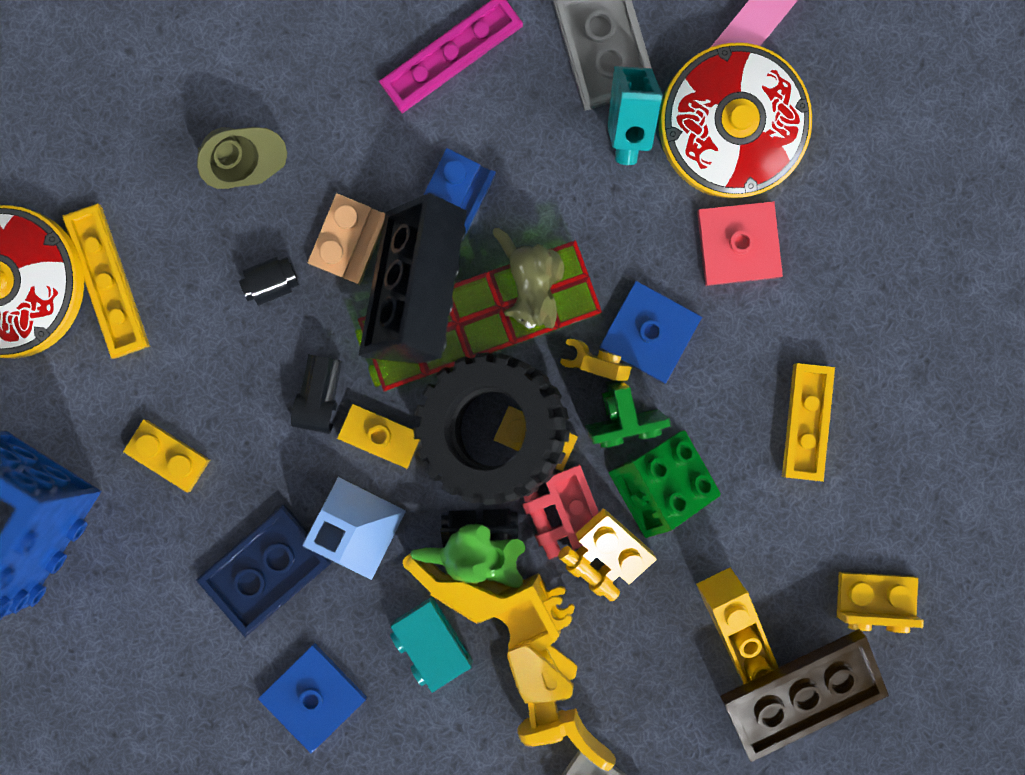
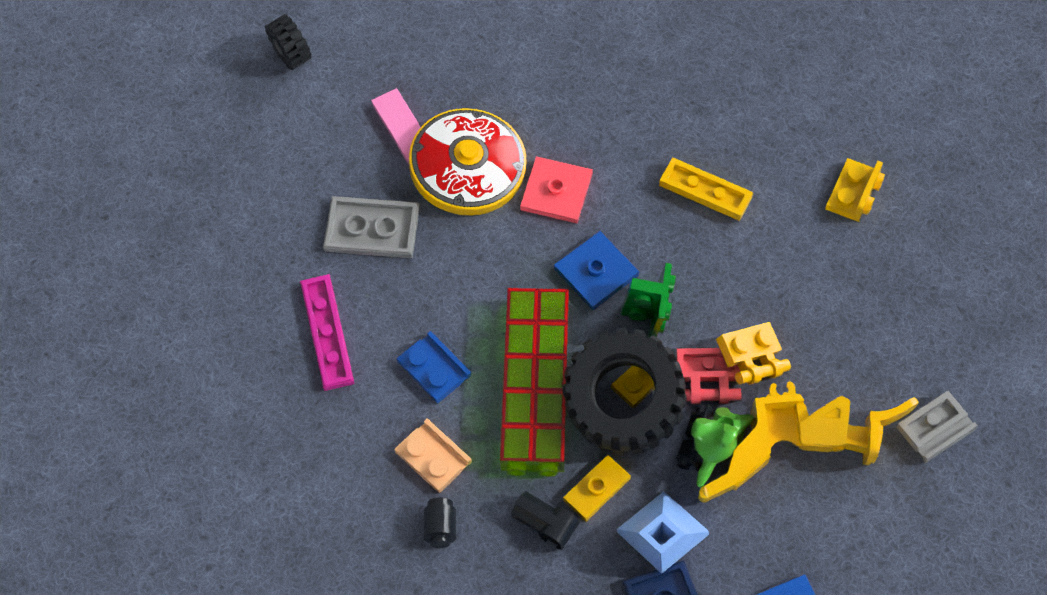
camera: 65 degrees left, 25 degrees down
(240, 156) = (333, 506): olive piece -> none
(414, 281) = (490, 405): black slope -> none
(431, 645) = (777, 506): teal brick -> none
(534, 274) = (521, 318): olive animal -> none
(604, 364) = (607, 304): yellow plate -> none
(633, 112) = (432, 218): teal torso -> none
(665, 485) = (716, 300): green bracket -> none
(737, 624) = (835, 284): yellow slope -> none
(805, 695) = (908, 258): dark brown plate -> none

